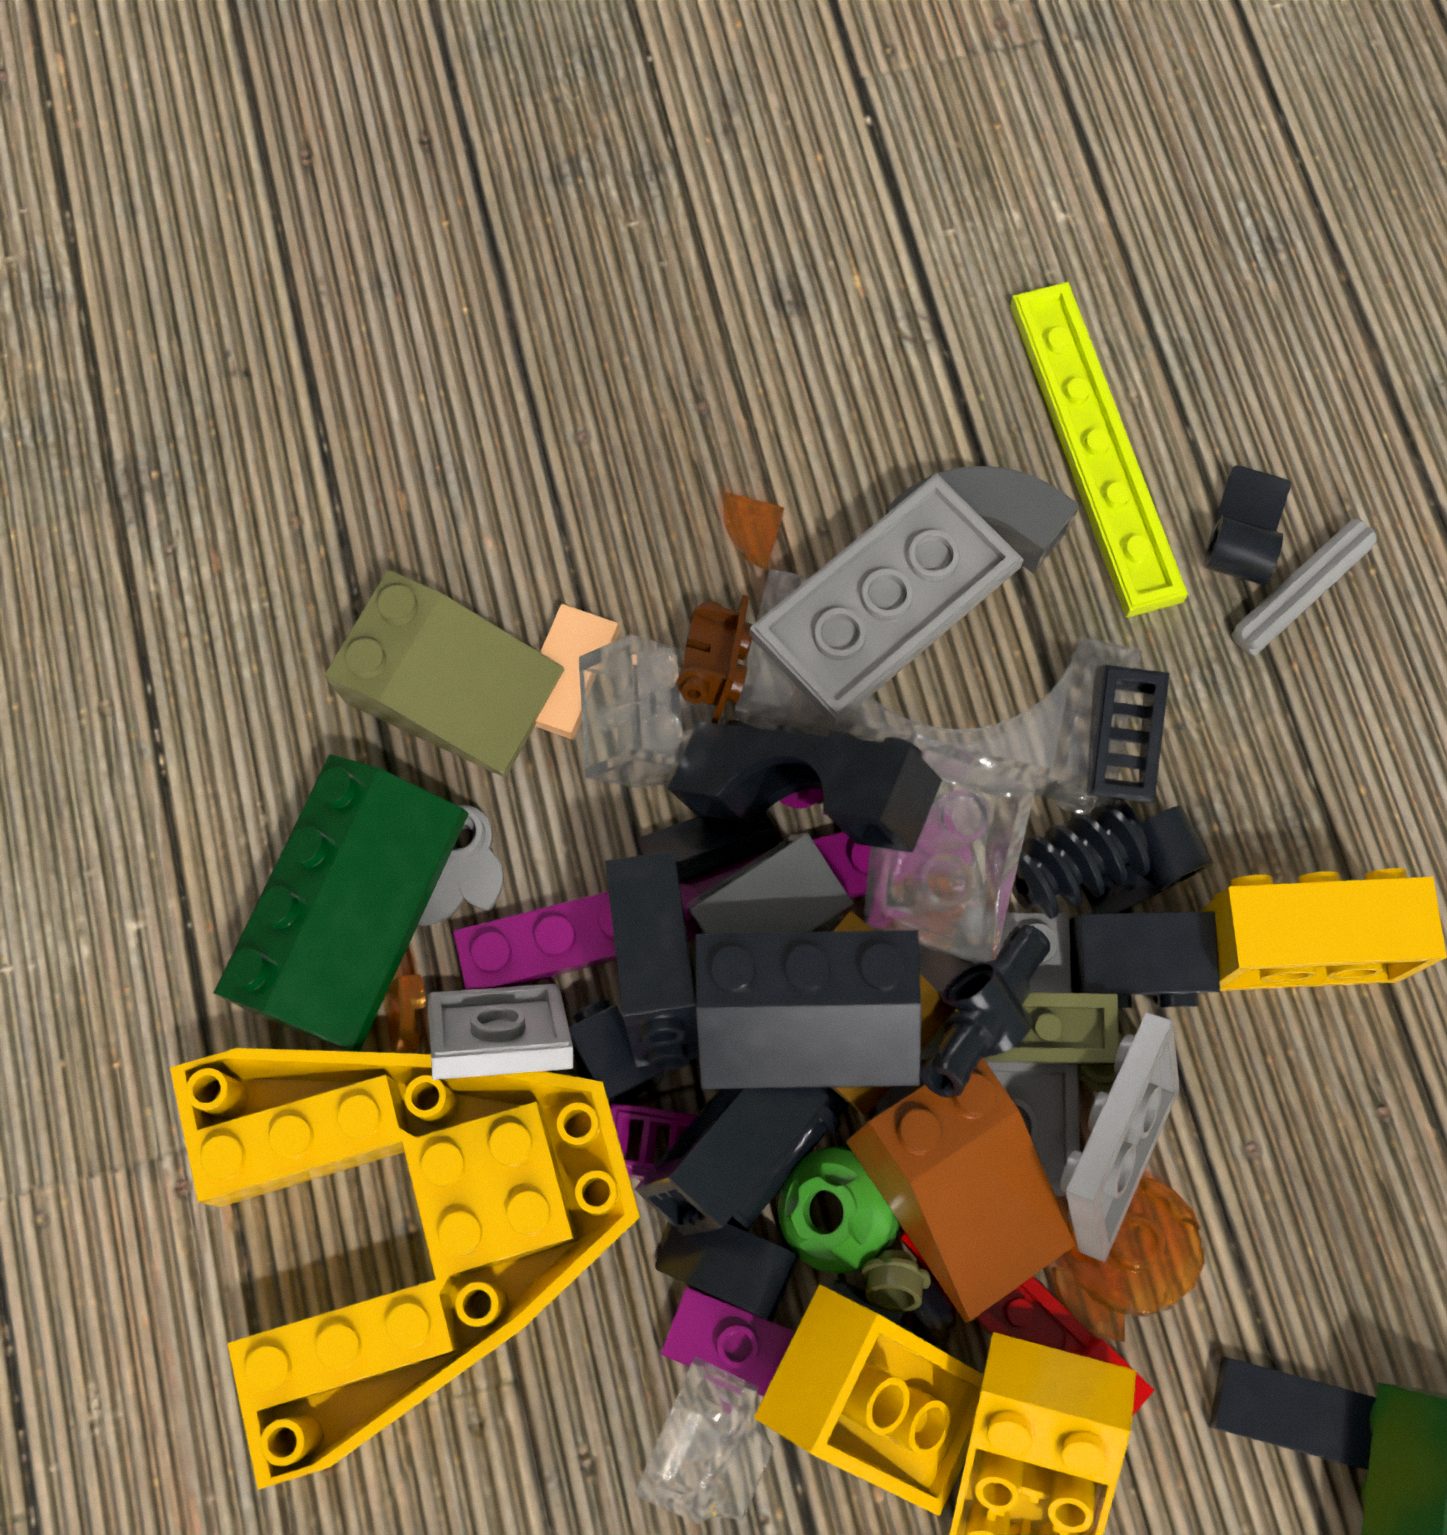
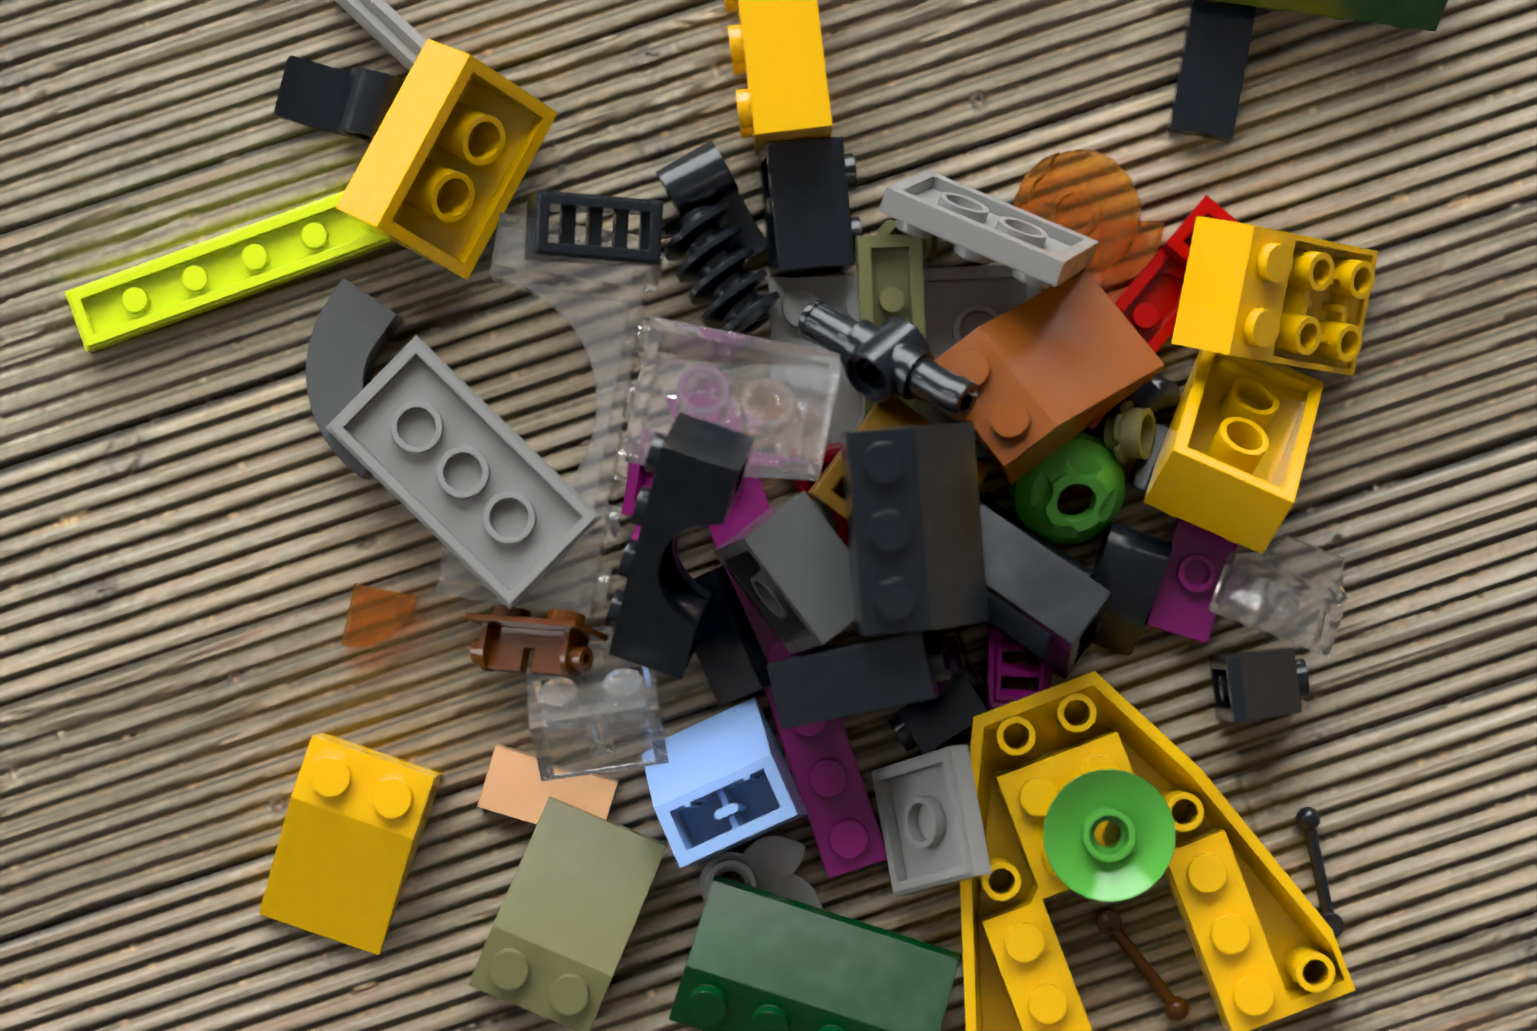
camera: 90 degrees left, 15 degrees up
(344, 1472) = (1308, 820): none -> black hinge
(372, 1224) = (1110, 923): none -> reddish brown hinge
(400, 1001) = (912, 920): clear orange tile -> none
(422, 1204) = (1143, 840): none -> bright green dish
(544, 488) = (348, 842): none -> yellow slope
(553, 827) = (723, 785): none -> light blue slope
(610, 1409) = (1258, 684): none -> black slope
(1195, 608) = (447, 158): none -> yellow slope

